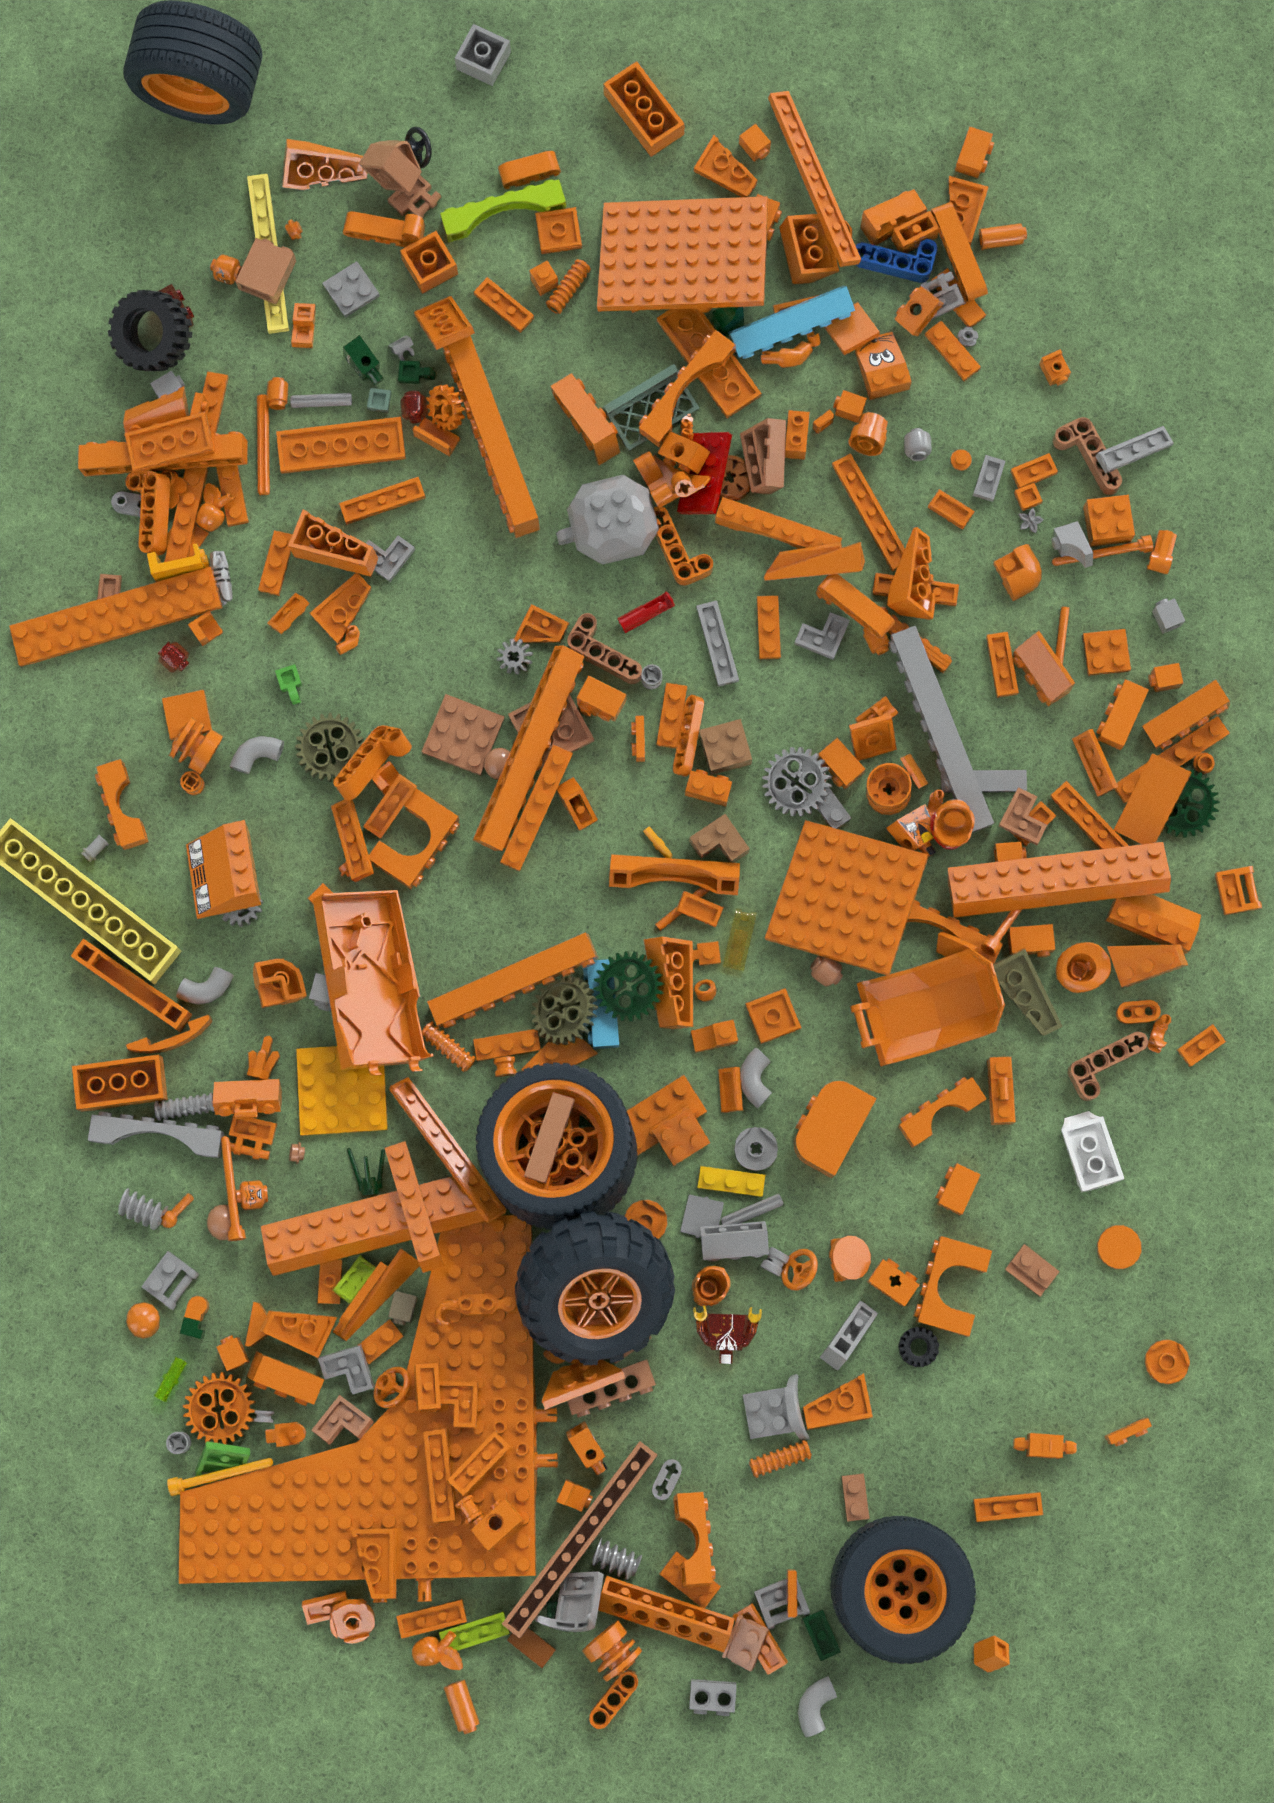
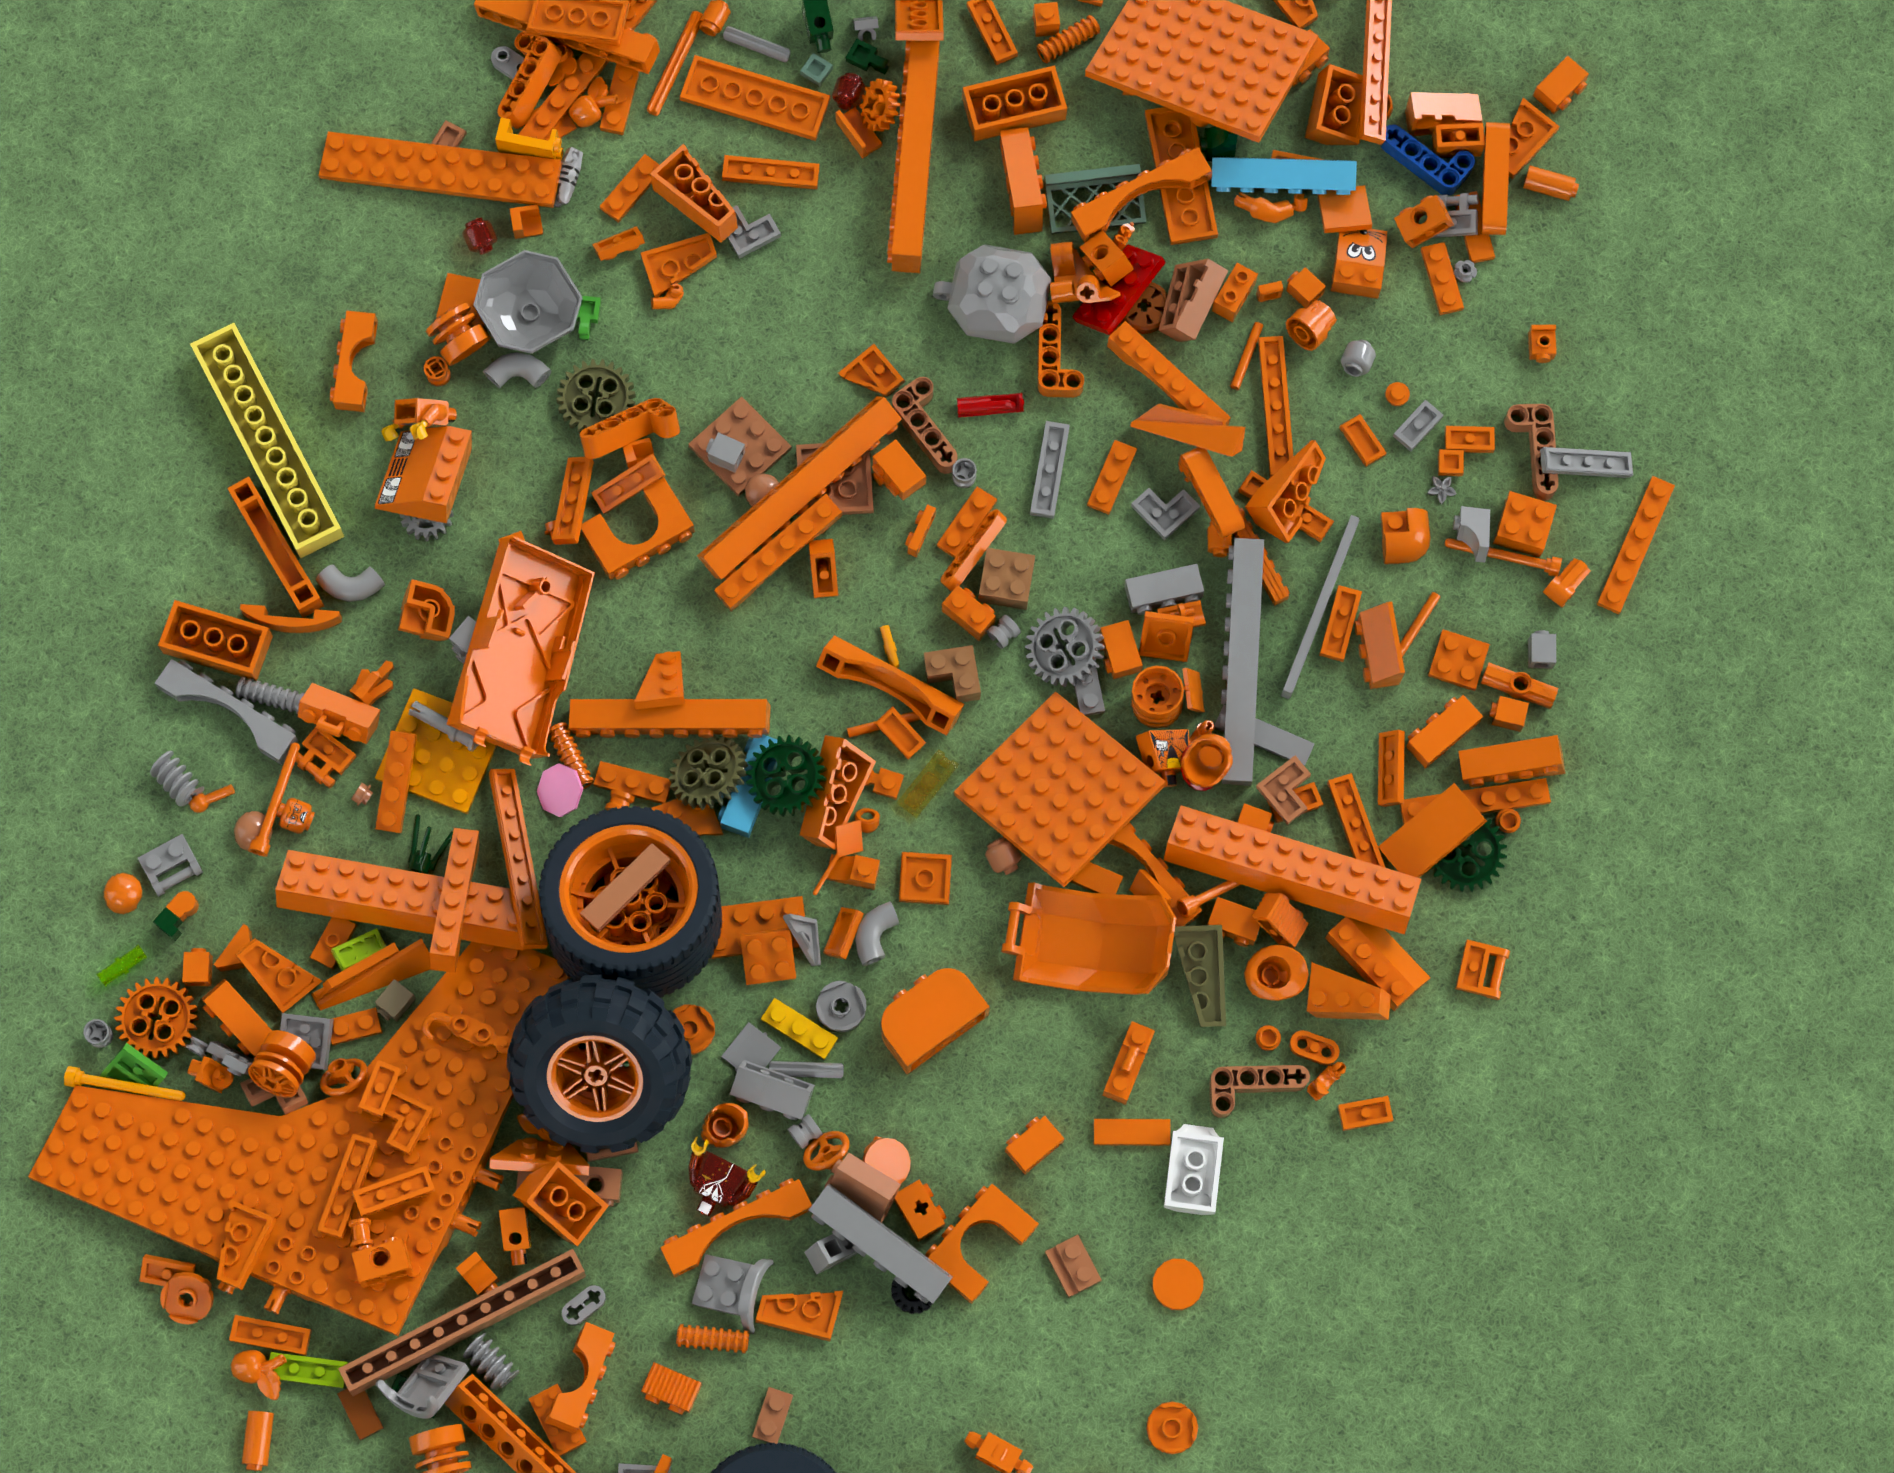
camera: 20 degrees right, 5 degrees down
(94, 848) = (305, 393): light grey pin -> none
(195, 824) = (419, 414): none -> orange torso
(240, 694) = (528, 301): none -> light grey rock
(299, 1414) = (236, 1061): none -> light grey plate
(319, 1131) = (396, 781): none -> orange plate
(332, 1067) = (439, 722): none -> light grey pin
(339, 1401) = (282, 1063): none -> orange wheel
(452, 1078) = (559, 790): none -> bright pink piece
(456, 745) = (725, 452): none -> light grey brick
(495, 955) = (662, 682): none -> orange wing
(514, 663) = (836, 380): light grey gear -> none
(551, 358) = (1014, 103): none -> orange brick
(613, 1408) = (561, 1201): none -> orange slope
(699, 1015) = (848, 841): none -> orange piece
(702, 1105) = (806, 934): none -> light grey tile
(742, 789) = (1003, 631): none -> light grey wheel
(766, 1513) = (671, 1388): none -> orange brick
(785, 1326) = (784, 1203): none -> orange arch
(828, 478) = (1246, 356): none -> orange bar
(842, 1290) = (864, 1186): none -> nougat brick
(852, 699) = (1164, 589): none -> light grey brick
(879, 1325) = (880, 1243): none -> light grey brick
(911, 955) = (1098, 879): none -> orange tile
(918, 1126) = (1087, 1051): orange arch -> none
(980, 657) = (1320, 607): none -> light grey tile
(1028, 1143) = (1132, 1132): none -> orange tile
(1067, 923) = (1280, 919): none -> orange brick
(1098, 1020) = (1268, 1038): none -> orange plate
(1176, 651) = (1504, 679): none -> orange piece
(1200, 498) = (1635, 545): none -> orange plate

